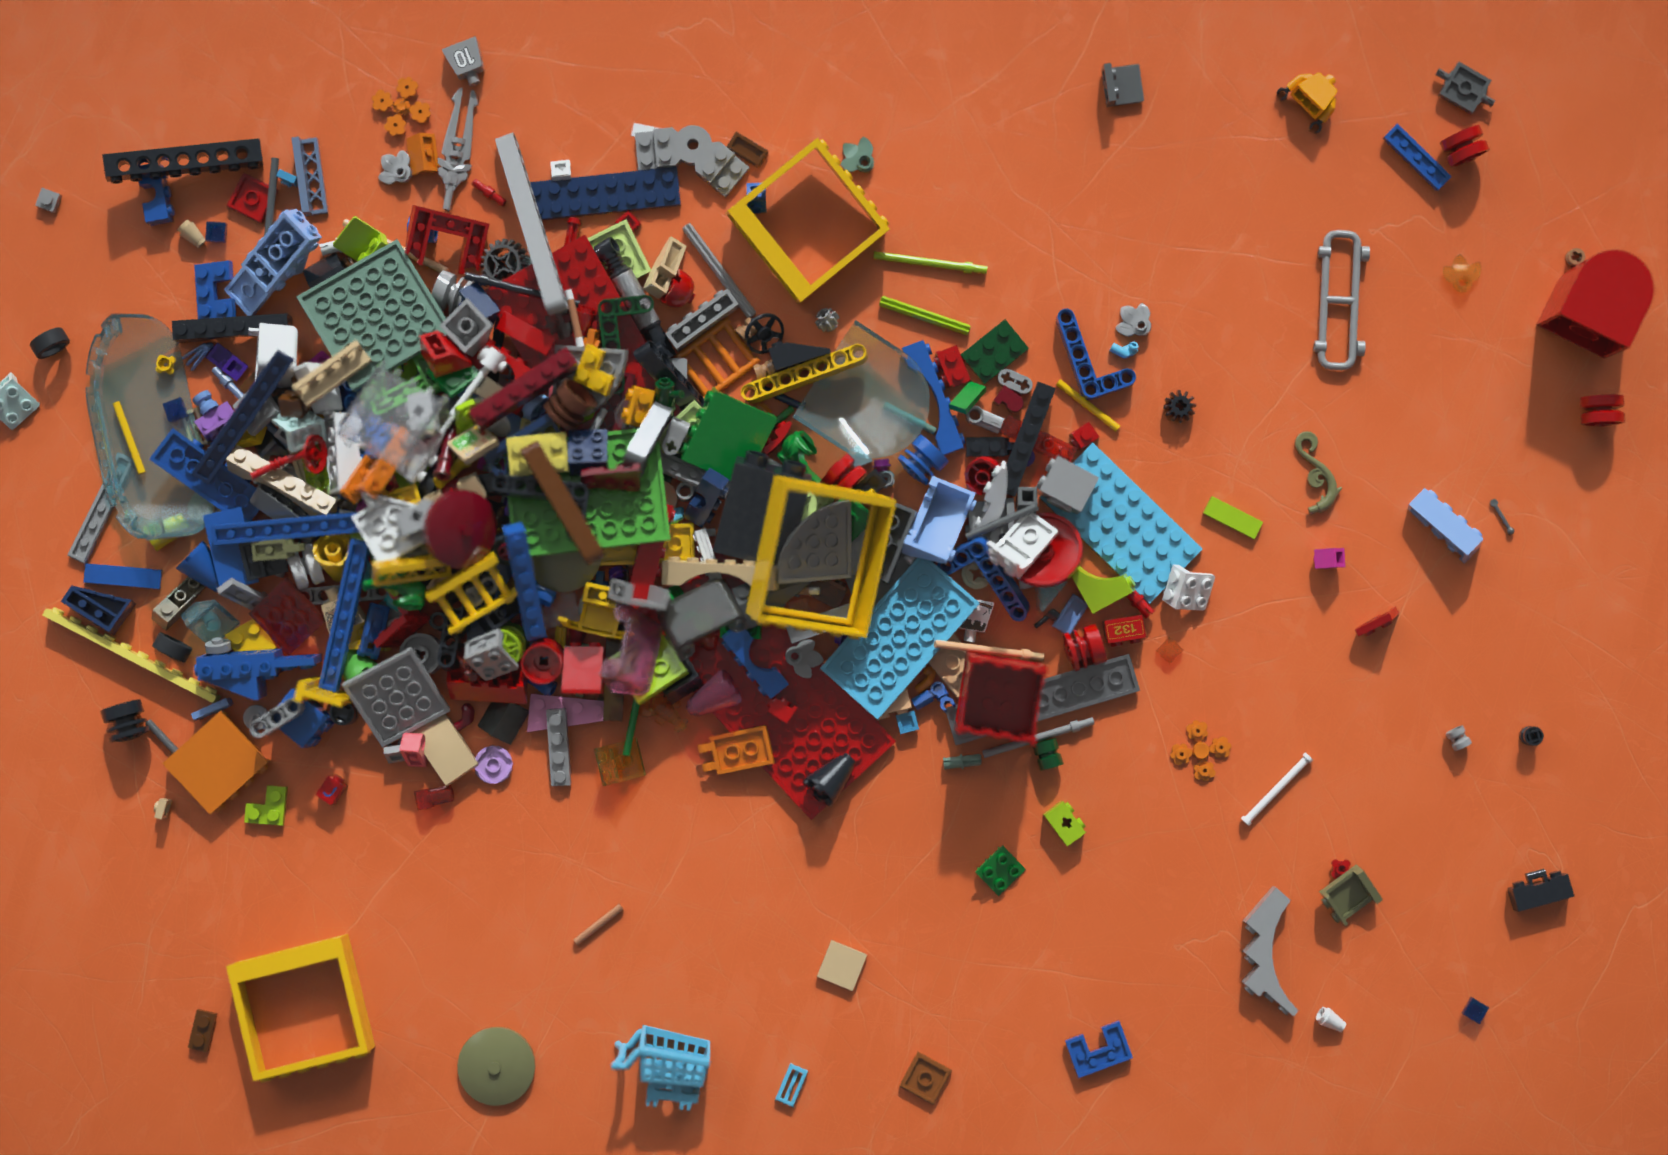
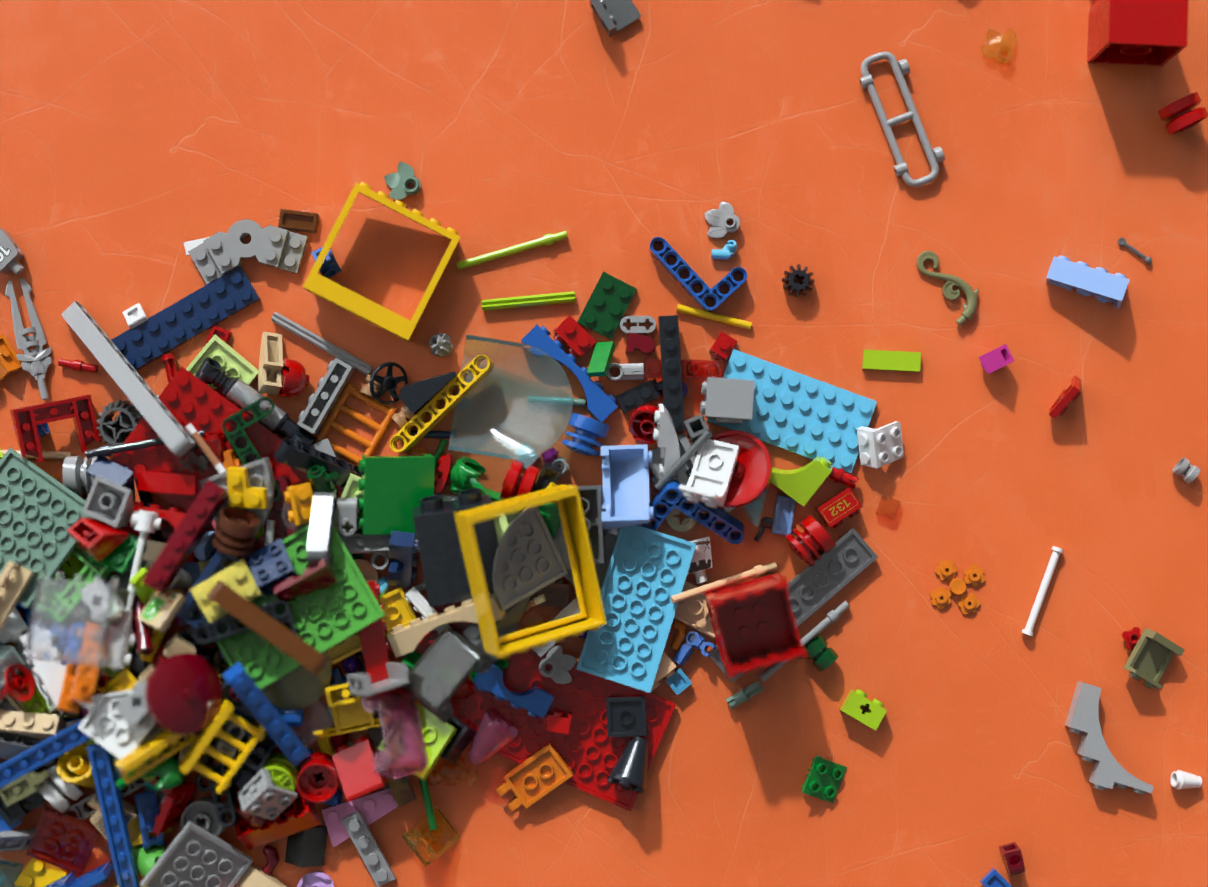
camera: 25 degrees left, 0 degrees up
(845, 731) = (626, 716): none -> black plate
(1140, 1020) = (1012, 858): none -> dark red leg

